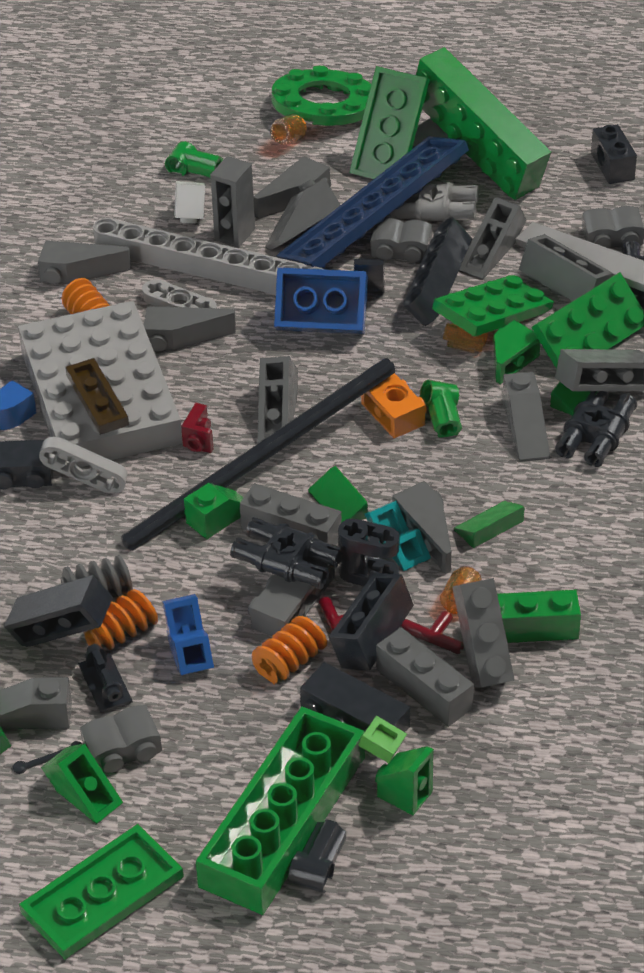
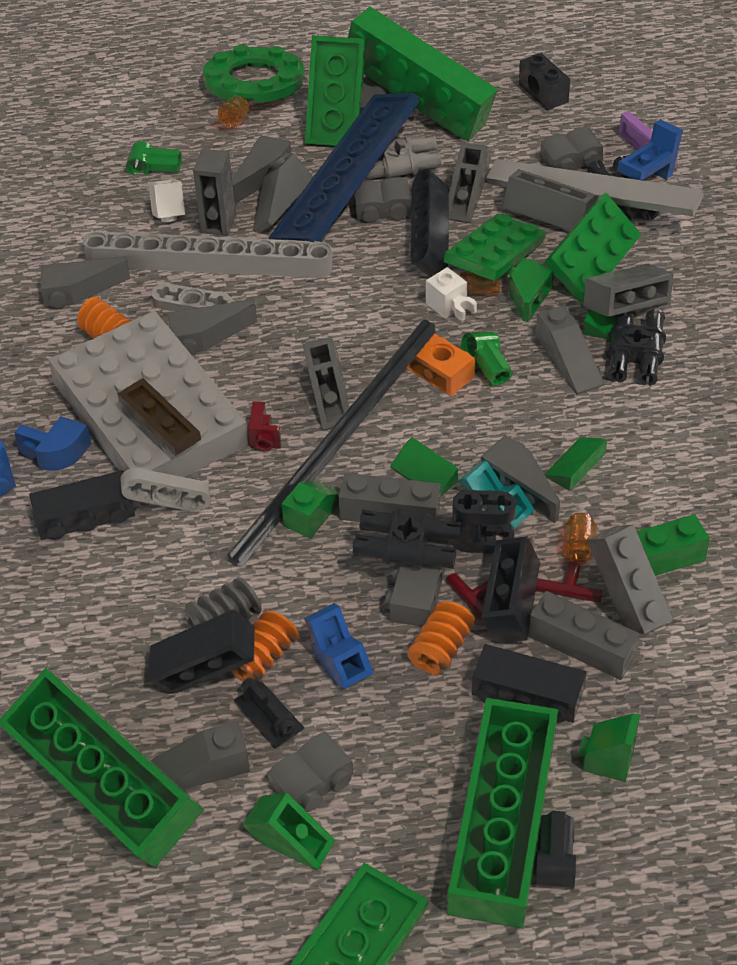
camera: 15 degrees left, 5 degrees up
(20, 766) = (216, 827): black hinge -> none
(321, 300) = (335, 274): blue brick -> none
(375, 272) = (371, 240): black slope -> none
(382, 739) = (577, 713): bright green plate -> none
(427, 341) = (448, 294): none -> white brick

